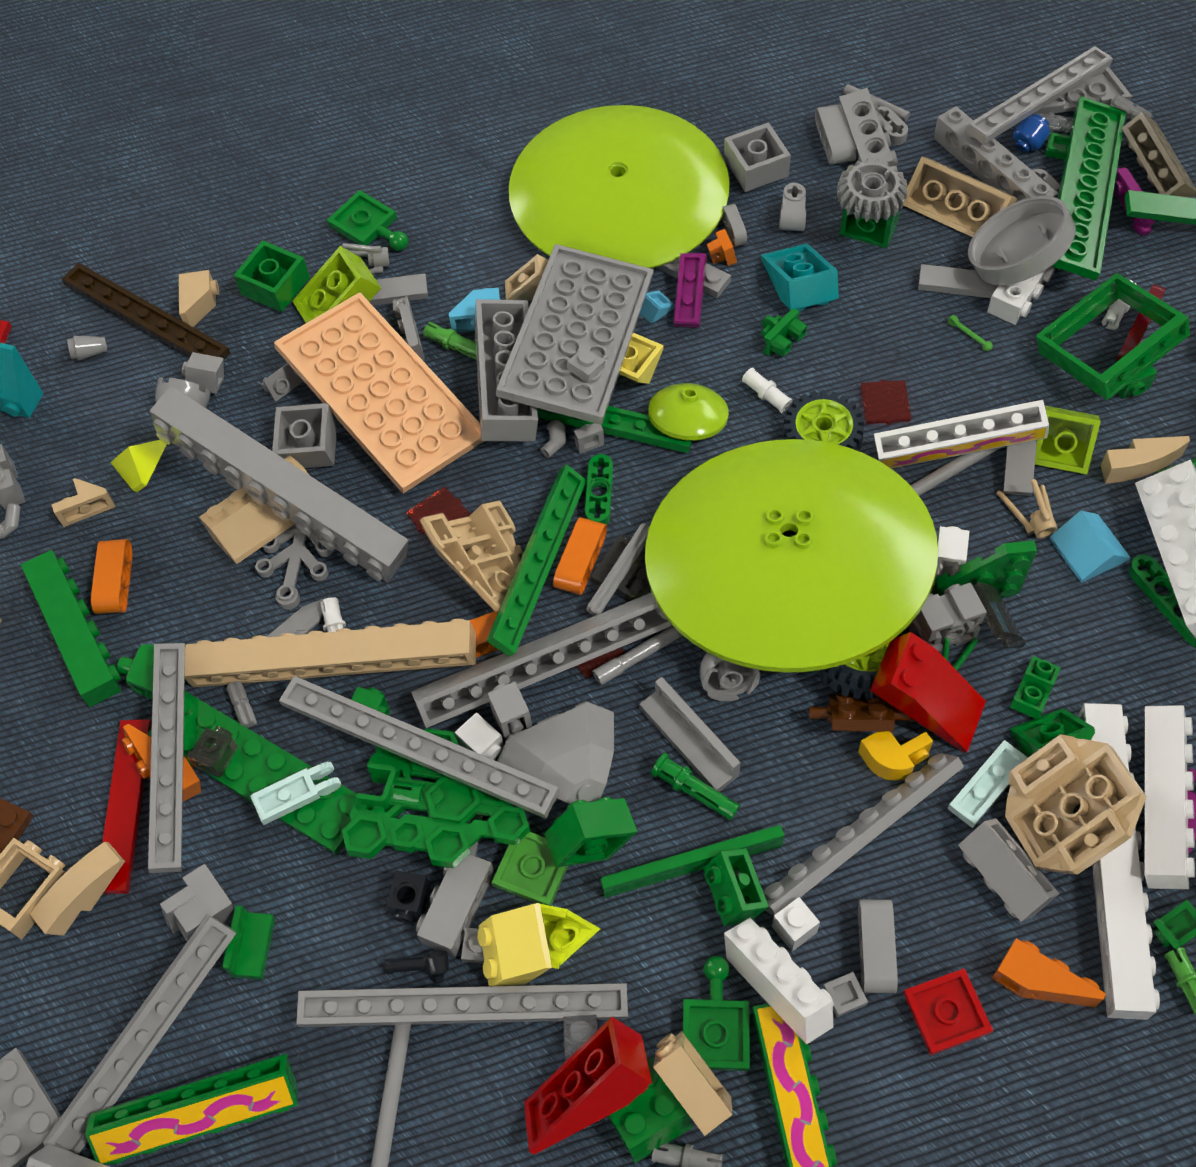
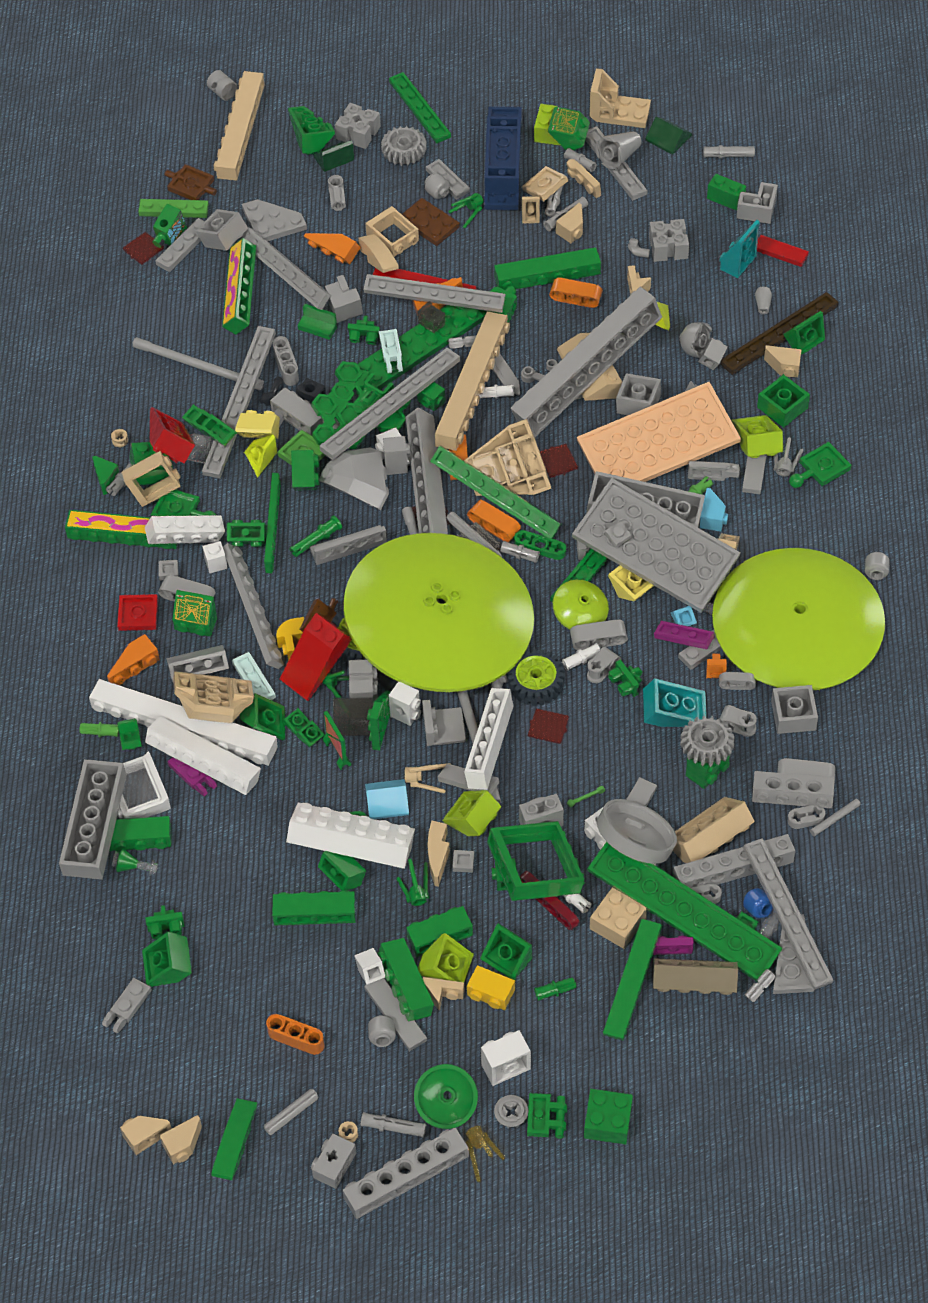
camera: 105 degrees right, 5 degrees down
(65, 967) = (335, 244): none -> orange slope
(141, 280) = (807, 333): none -> green slope
(257, 871) = (363, 328): none -> green hips
(355, 949) = (285, 361): none -> light grey beam
(510, 133) = (877, 565): none -> light grey head
(535, 1033) = (209, 425): none -> green slope
(621, 510) = (520, 551): none -> light grey pin
(726, 379) = (603, 633): none -> light grey beam
(770, 362) = (601, 665): none -> light grey piece
(922, 909) = (194, 613): none -> green slope
(954, 508) = (443, 725): none -> light grey bracket
(1034, 358) = (541, 810): none -> light grey brick
(1062, 610) = (333, 735): none -> green flag
(1130, 249) = (617, 918): none -> tan brick
(1138, 426) = (463, 861): none -> light grey plate

